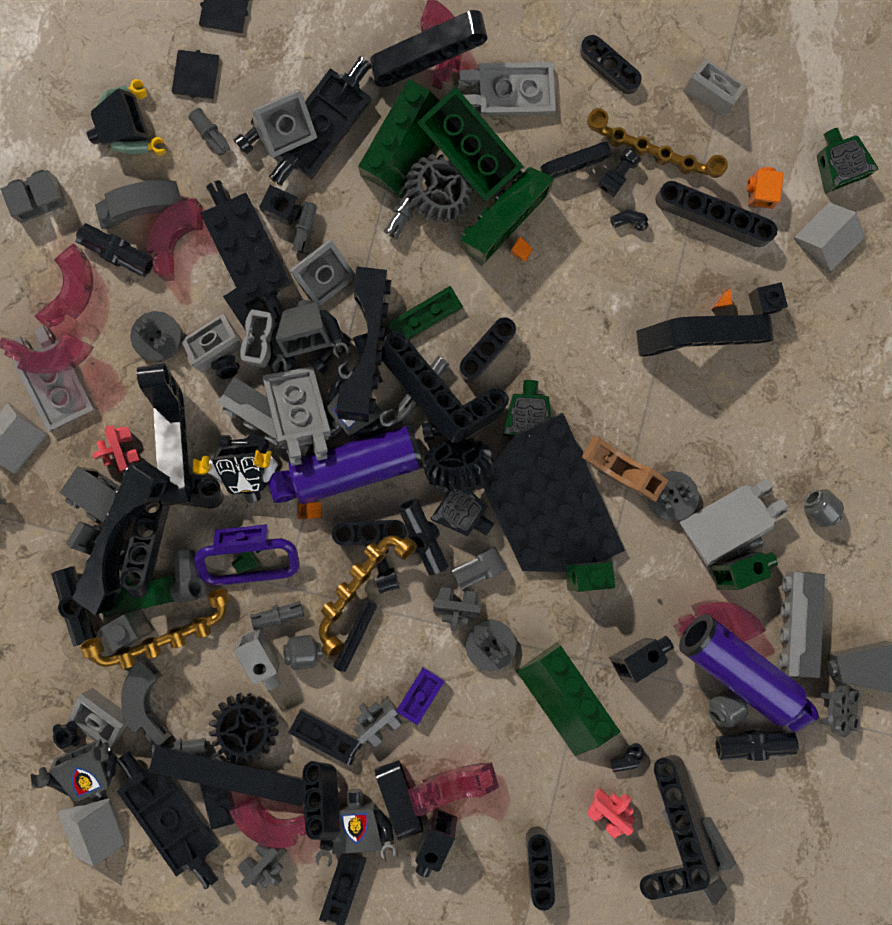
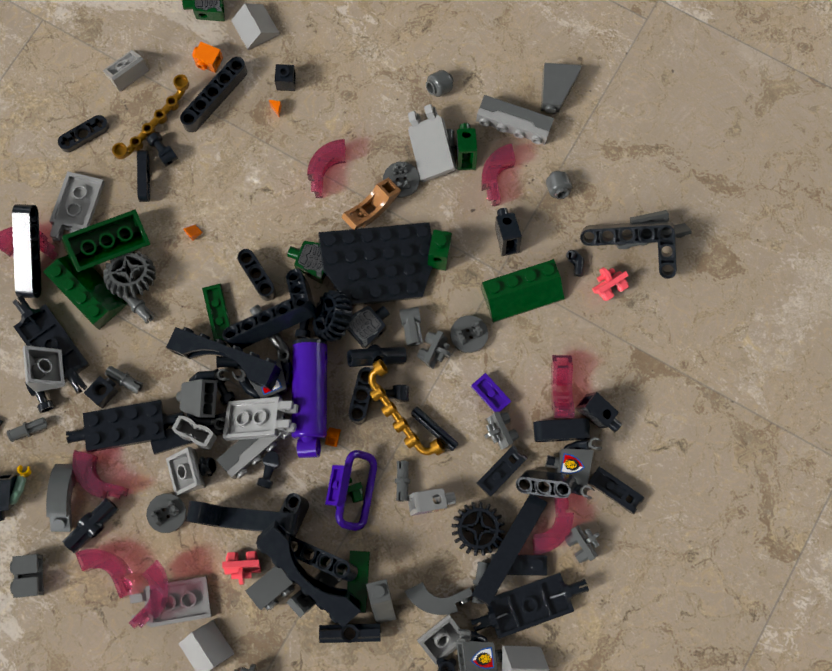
camera: 70 degrees left, 10 degrees down
(151, 646) = (397, 579): pearl gold bar -> none
(187, 583) = (358, 540): dark grey piece -> none
(240, 468) = (286, 472): torso -> none
(302, 652) = (435, 470): dark grey head -> none
(323, 273) = (162, 374): light grey slope -> none
(506, 214) = (164, 233): dark green slope -> none
(545, 879) = (644, 340): black beam -> none
(630, 216) = (196, 150): black arm -> none
(671, 387) = (322, 160): none -> clear pink arch
(704, 332) = (292, 125): black beam -> none
(747, 673) = (536, 163): dark purple piece -> none
(756, 745) = (589, 174): black piece -> none
(842, 710) = (580, 110): dark grey plate -> none

